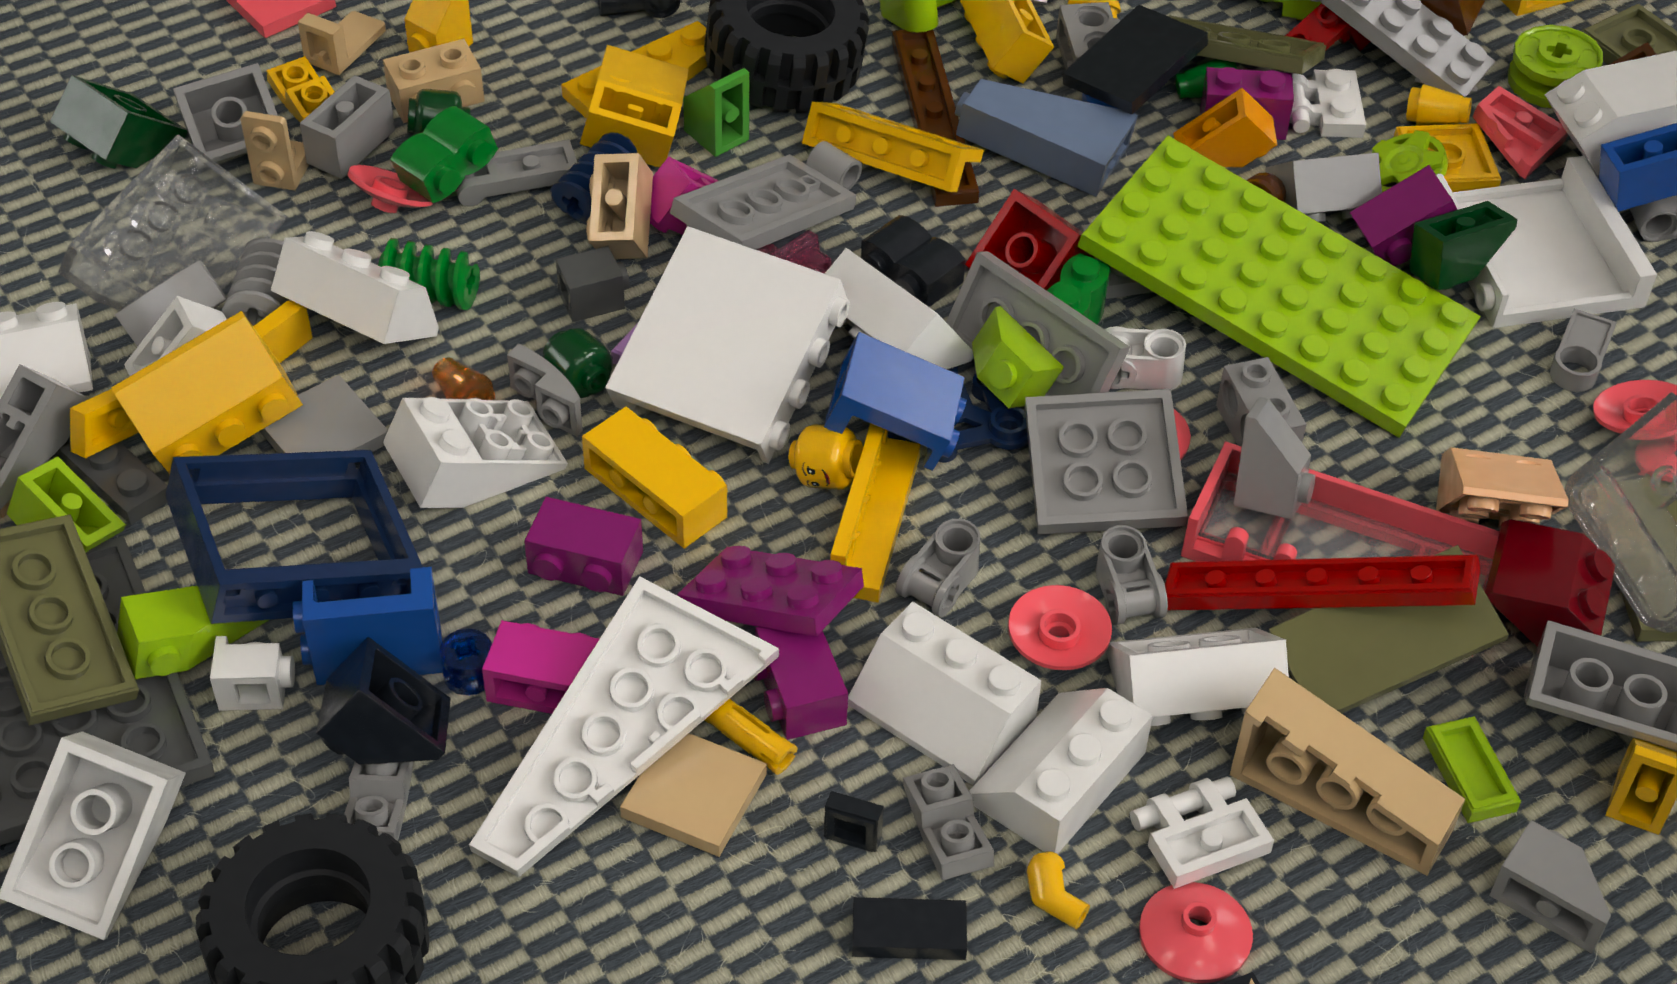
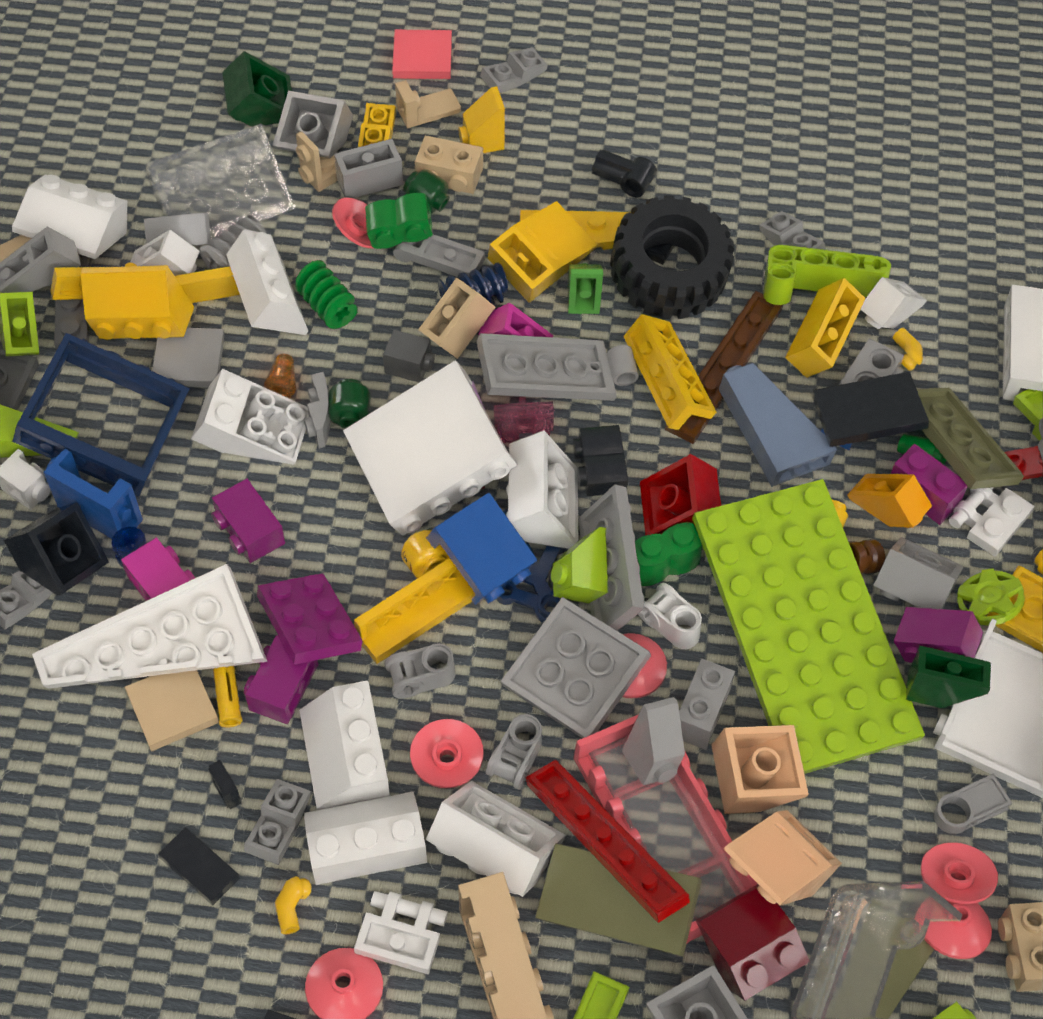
camera: 40 degrees right, 10 degrees up
(655, 476) = (326, 503): yellow brick -> none
(1376, 434) = (758, 768): none -> light nougat slope

